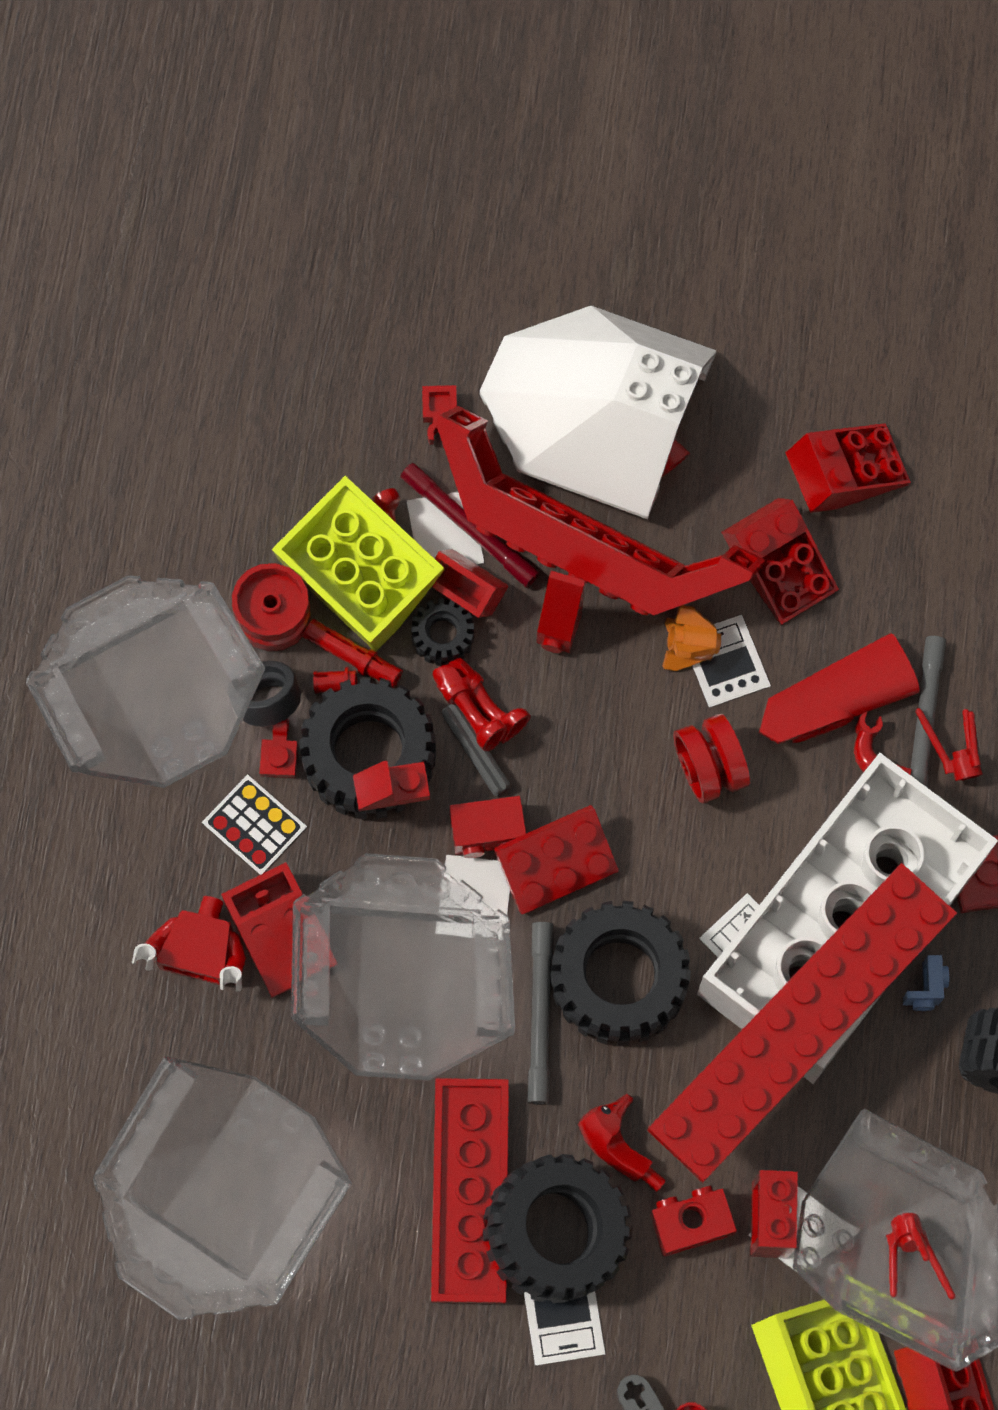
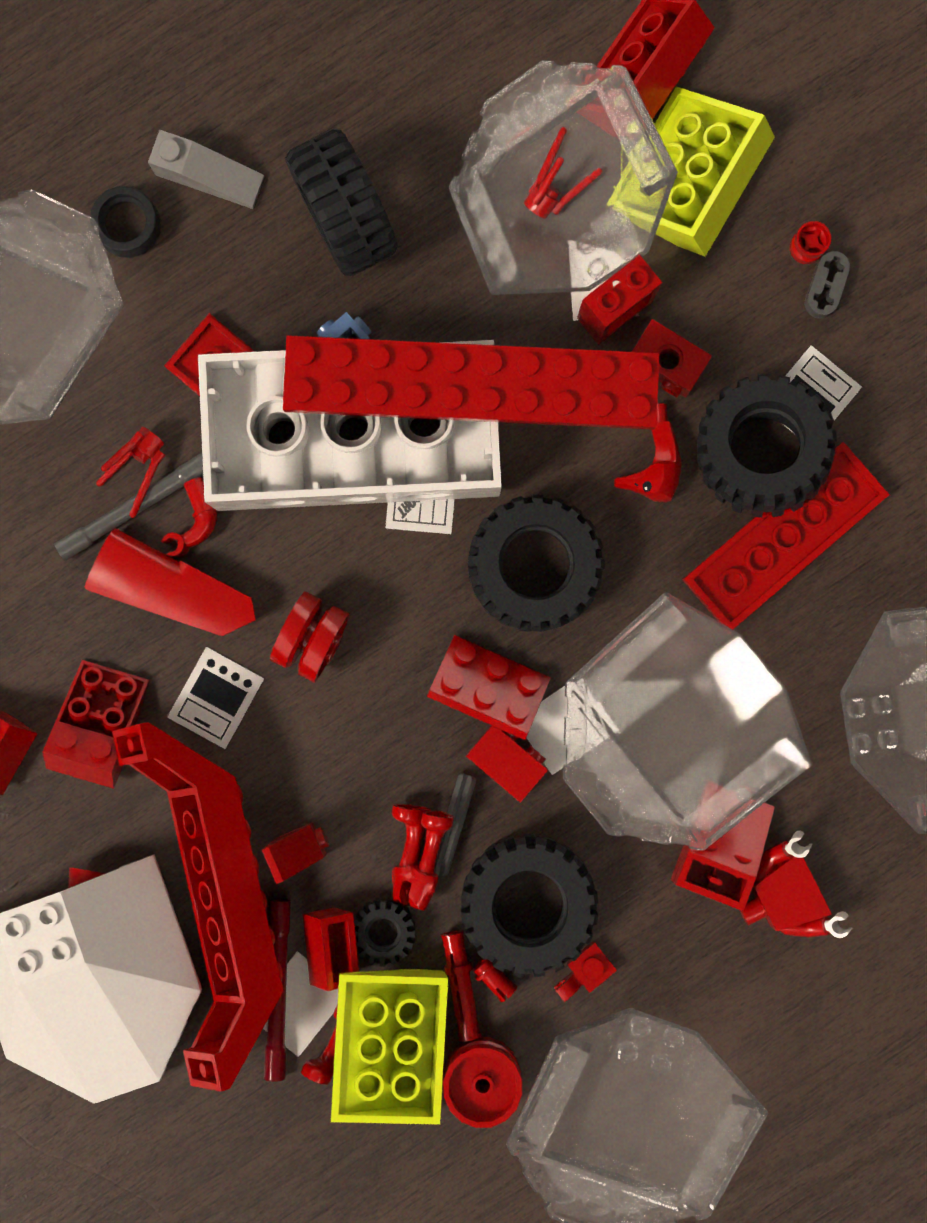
camera: 130 degrees left, 15 degrees up
(254, 824) = (655, 939): sticker -> none
(282, 704) = (549, 1000): black tyre -> none
(391, 786) = (552, 856): red slope -> none
(435, 402) = (198, 1104): red plate -> none
(539, 1064) = (655, 563): dark grey piece -> none
(691, 639) = (225, 736): orange brick -> none

